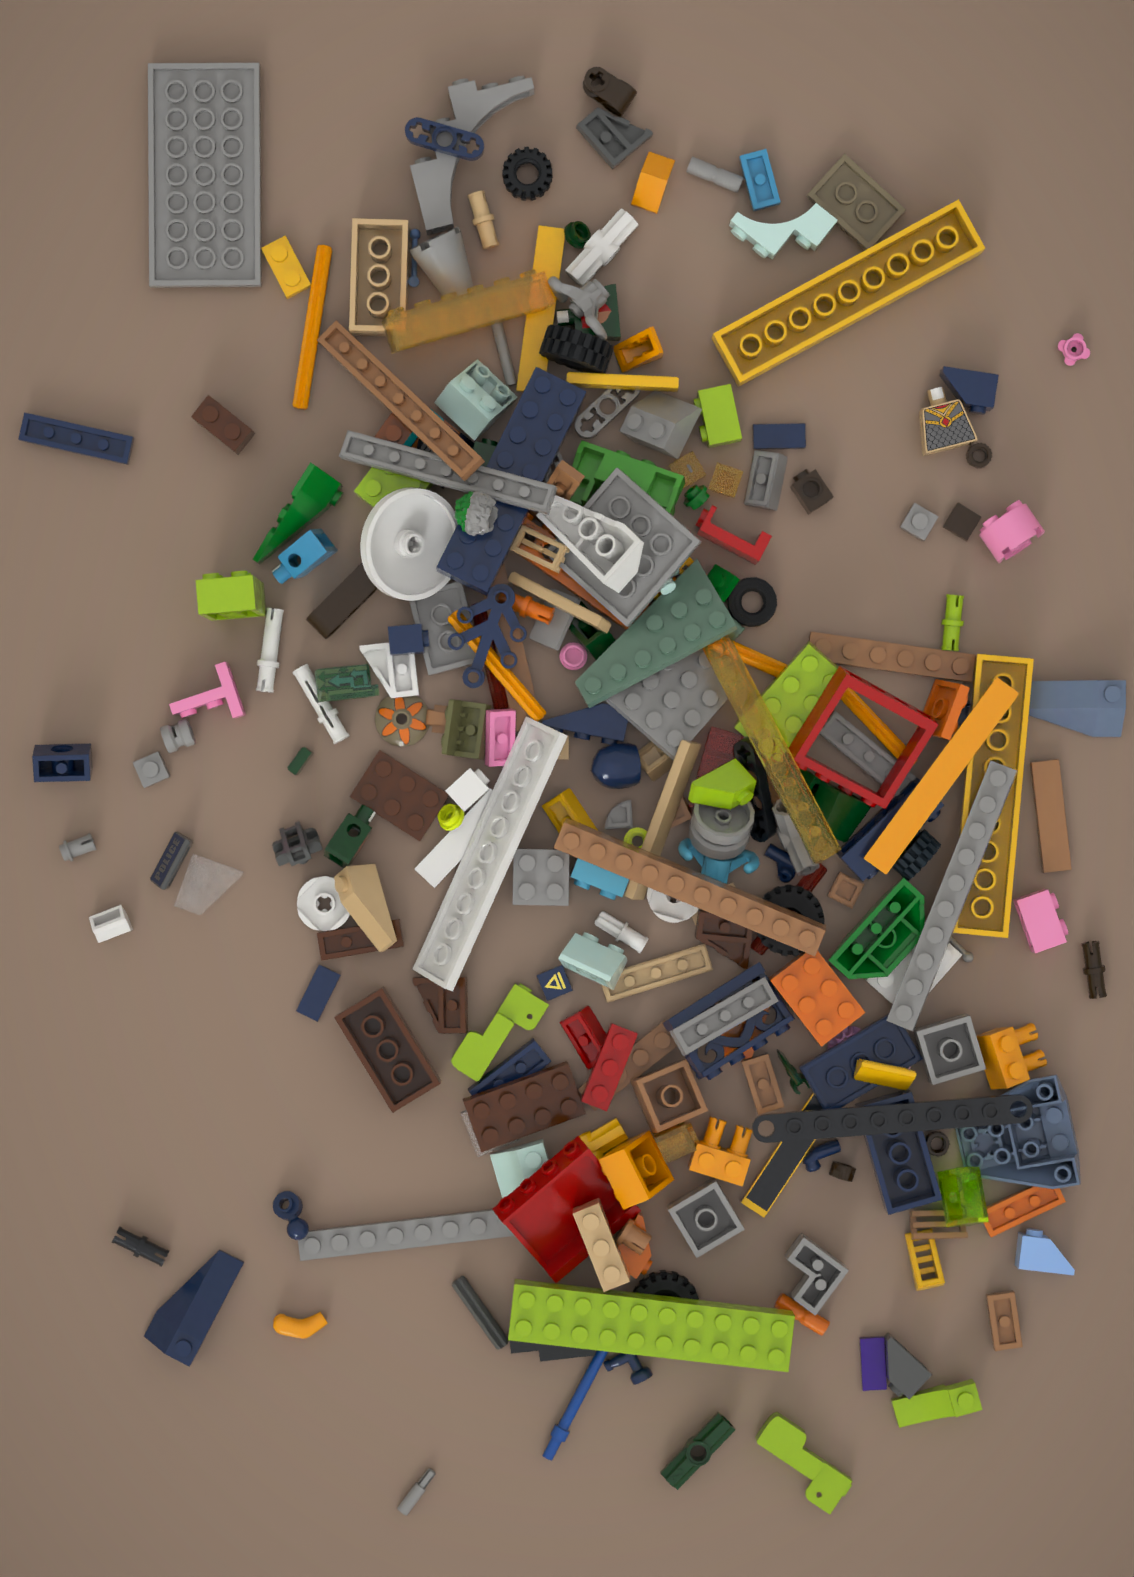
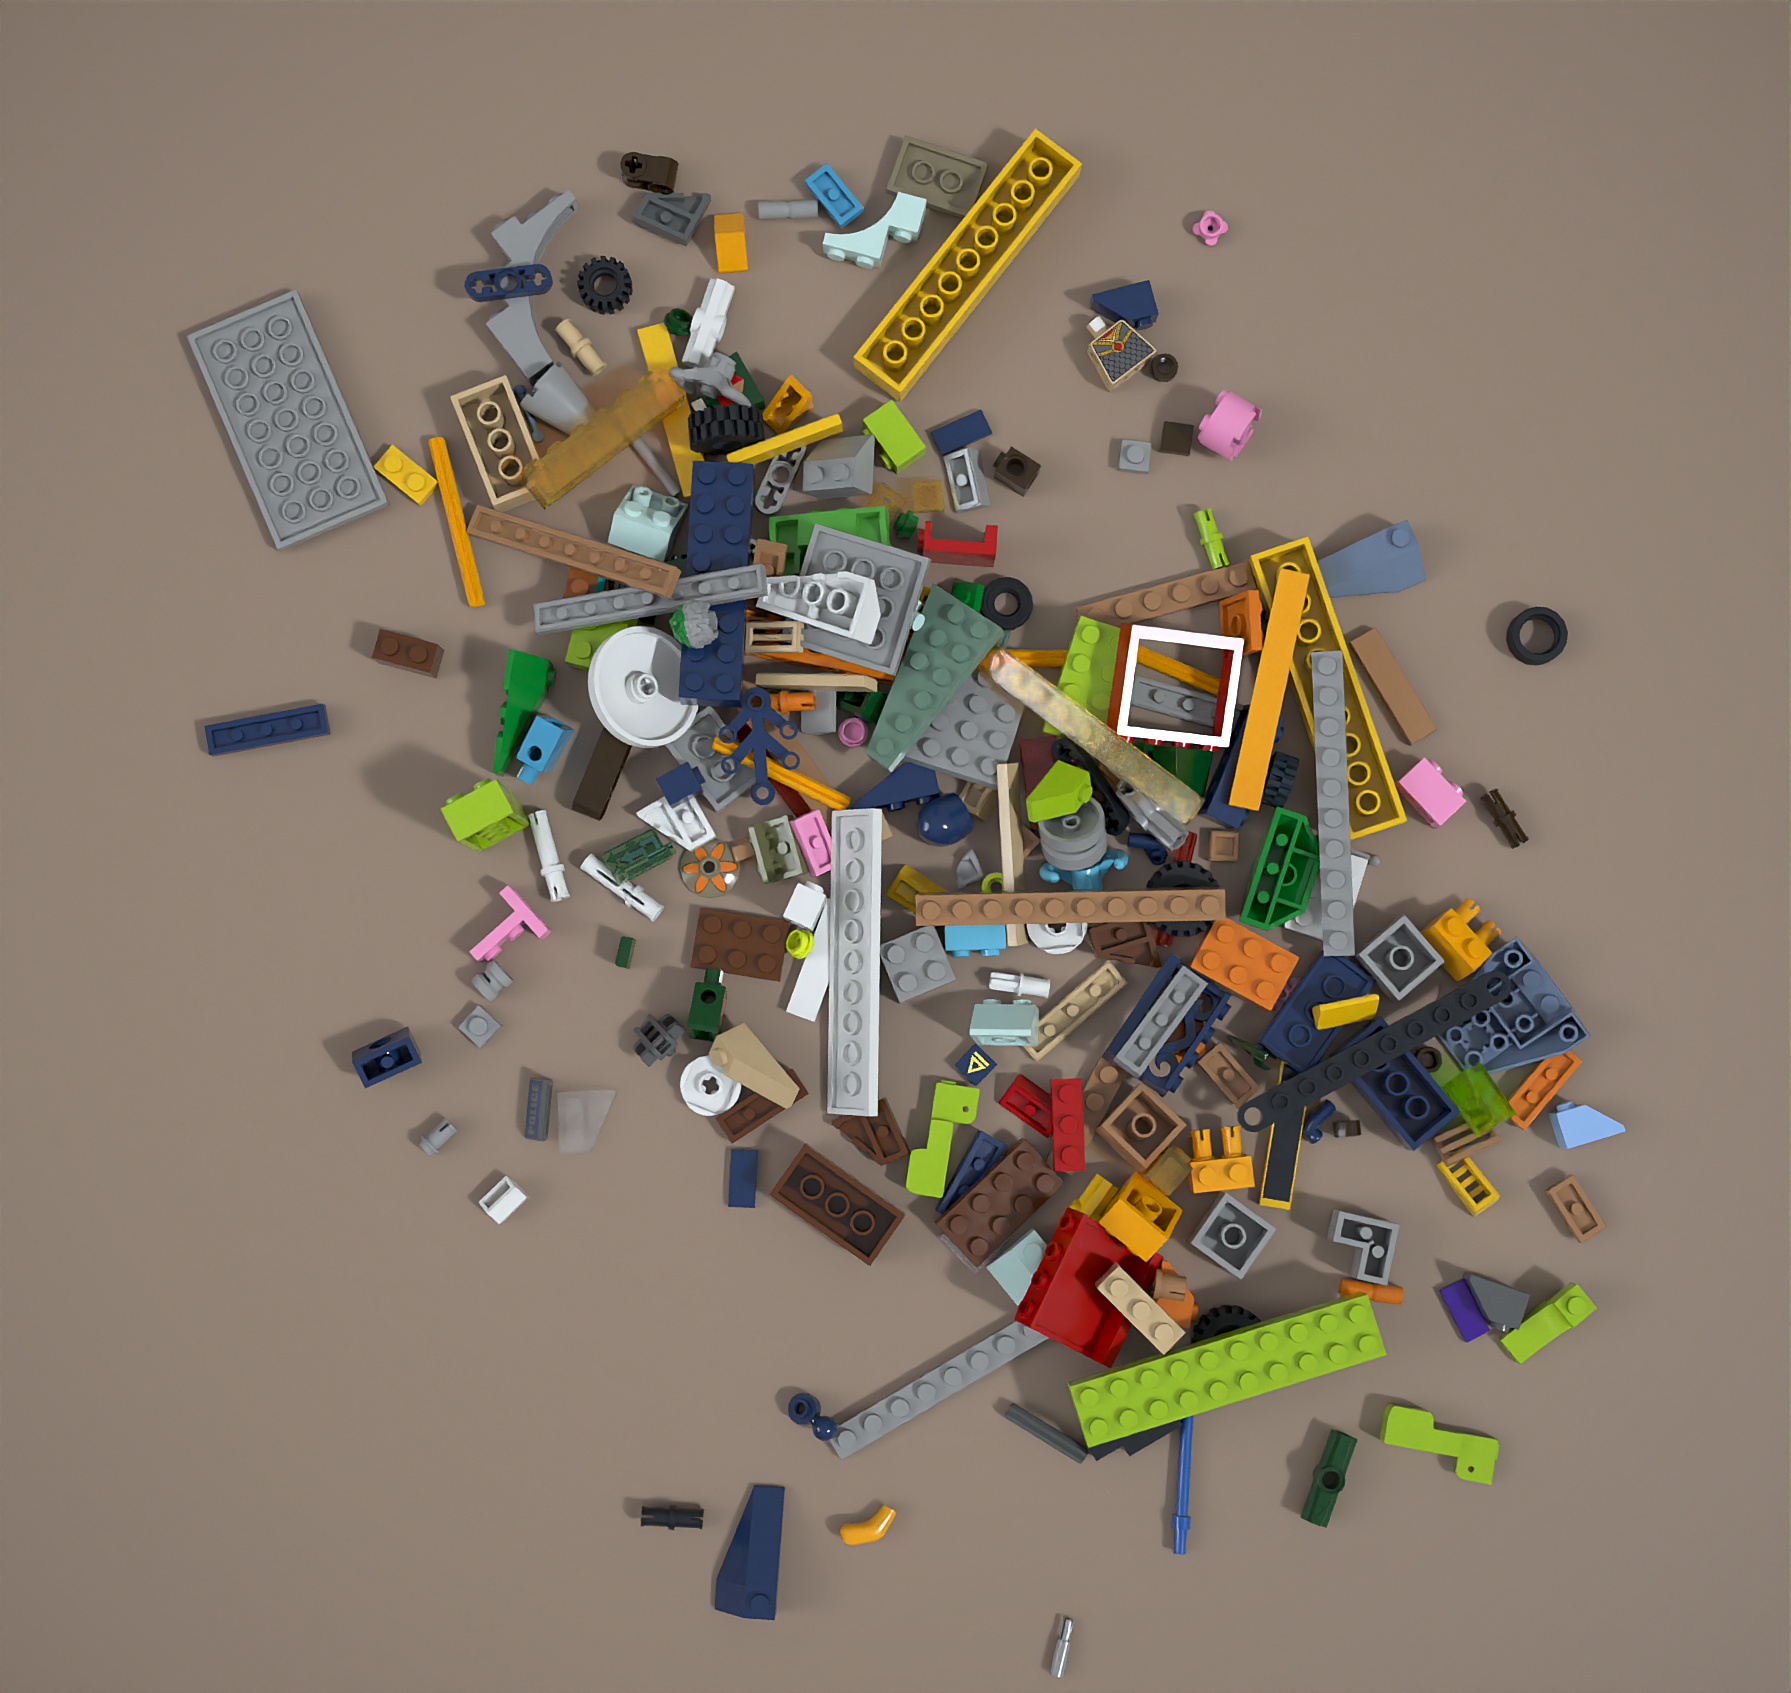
camera: 25 degrees left, 5 degrees down
(639, 1372) = (1234, 1424): dark blue piece -> none

